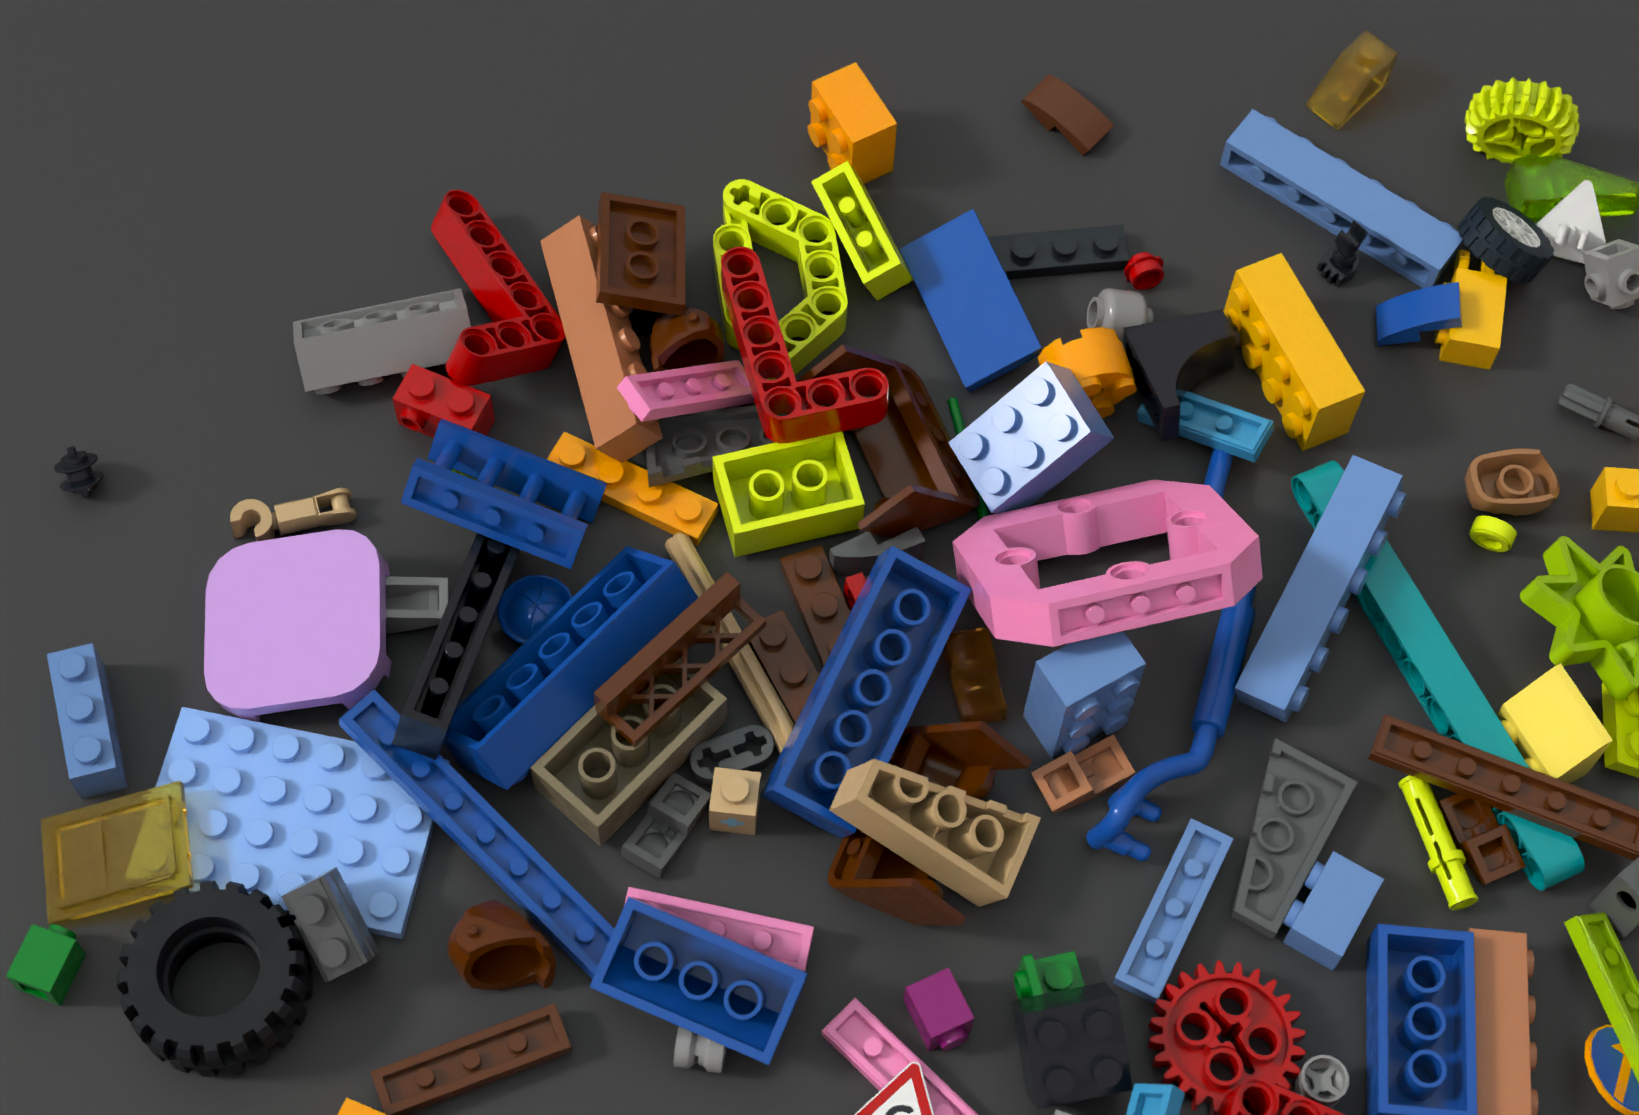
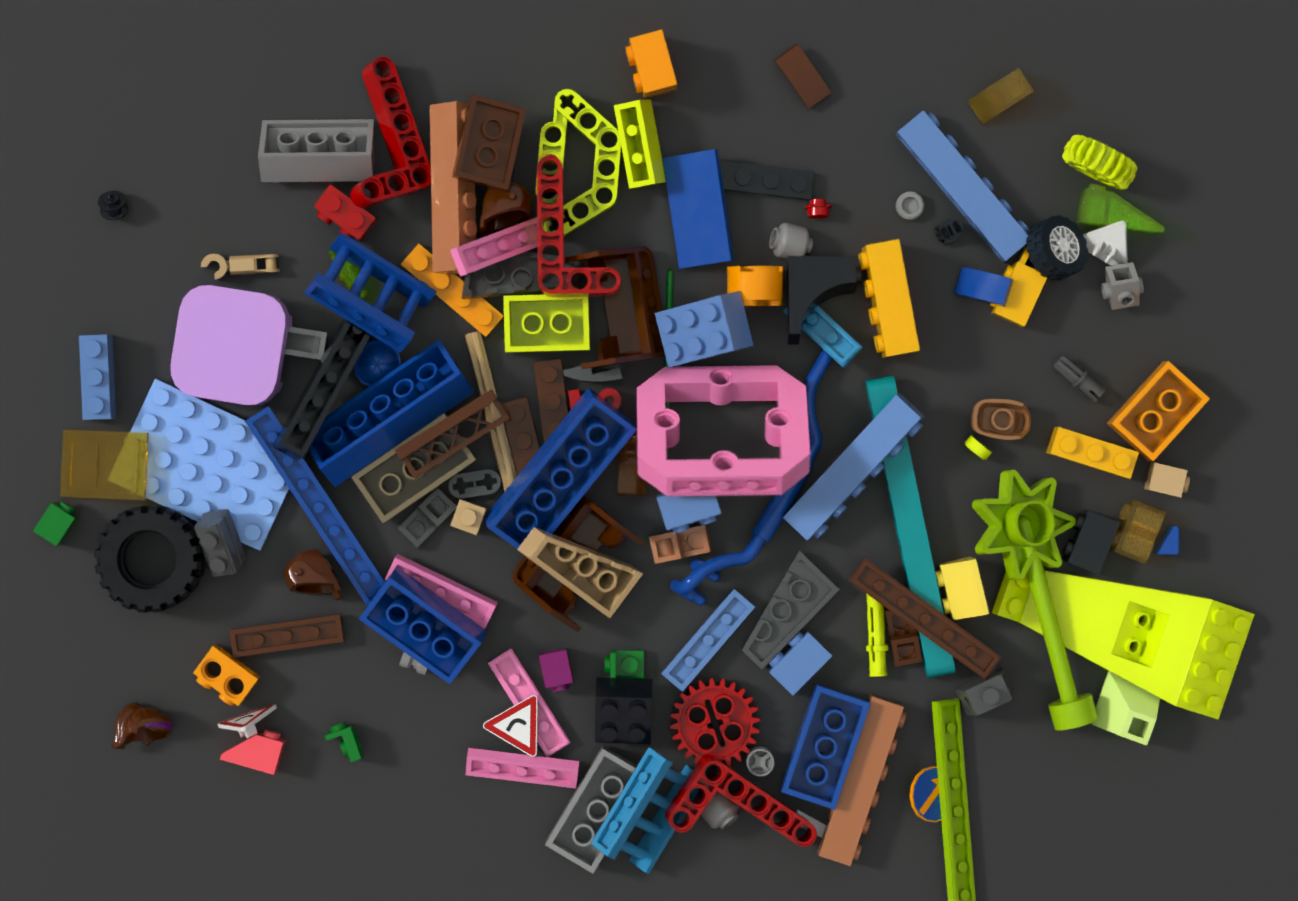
camera: 20 degrees right, 25 degrees up
(1272, 240) = (909, 205): none -> light grey tile

